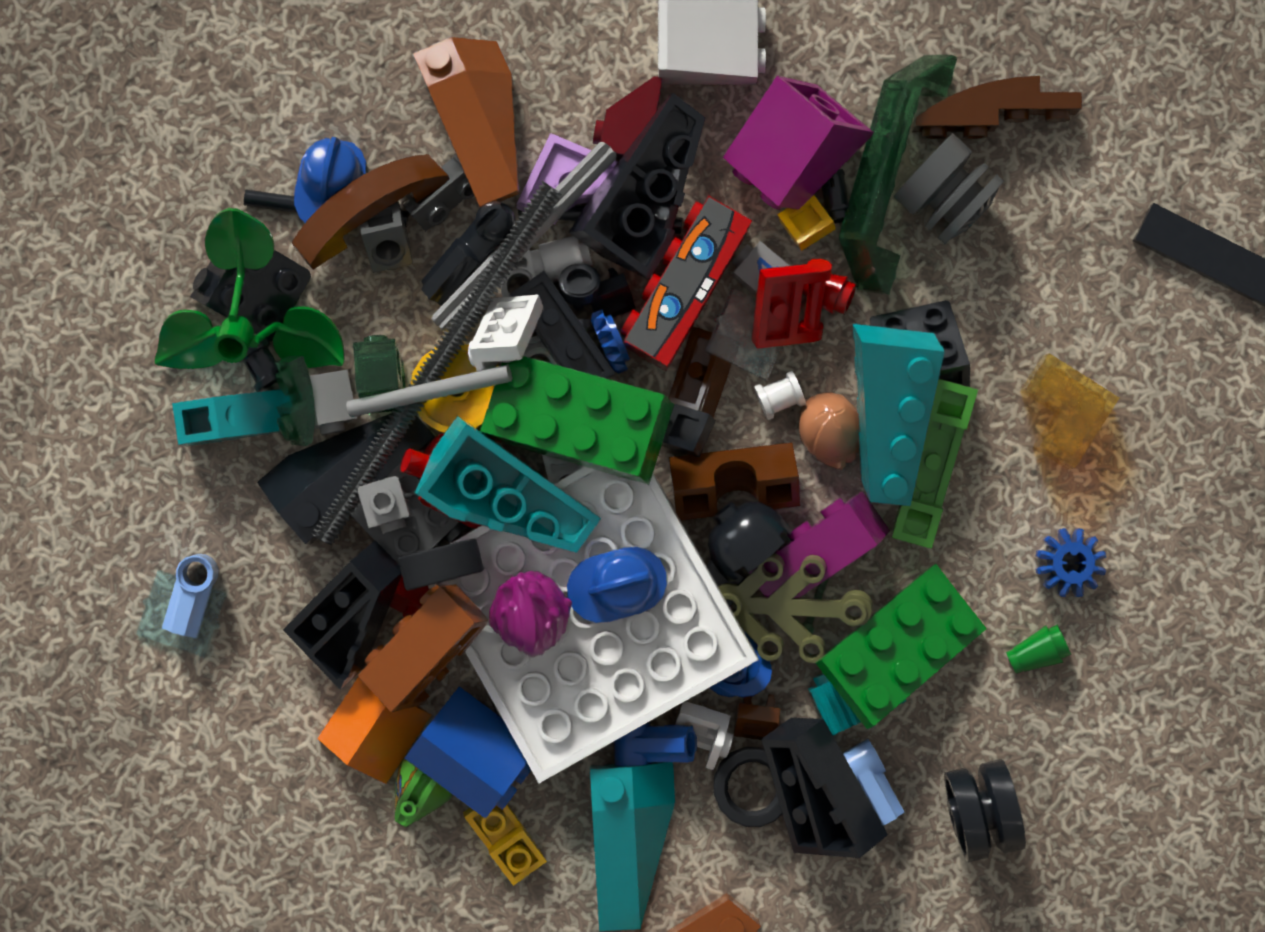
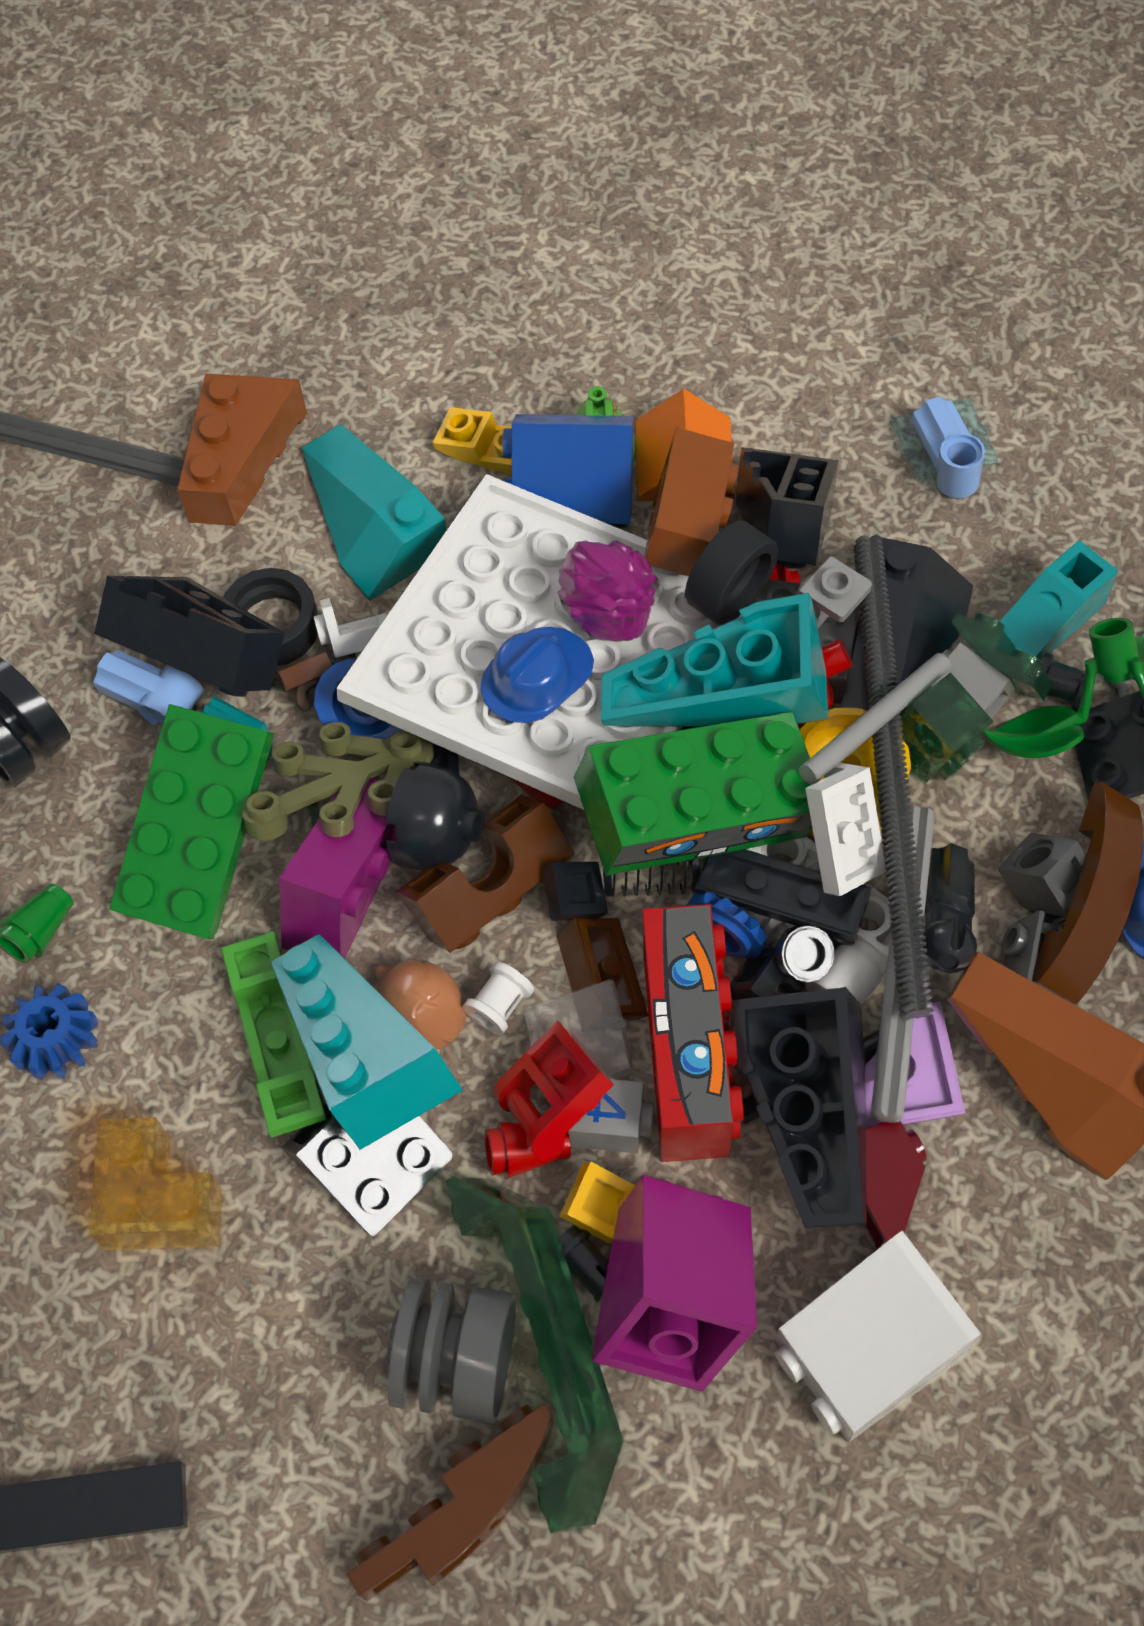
camera: 150 degrees right, 25 degrees down
(656, 744) = (376, 594): blue piece -> none

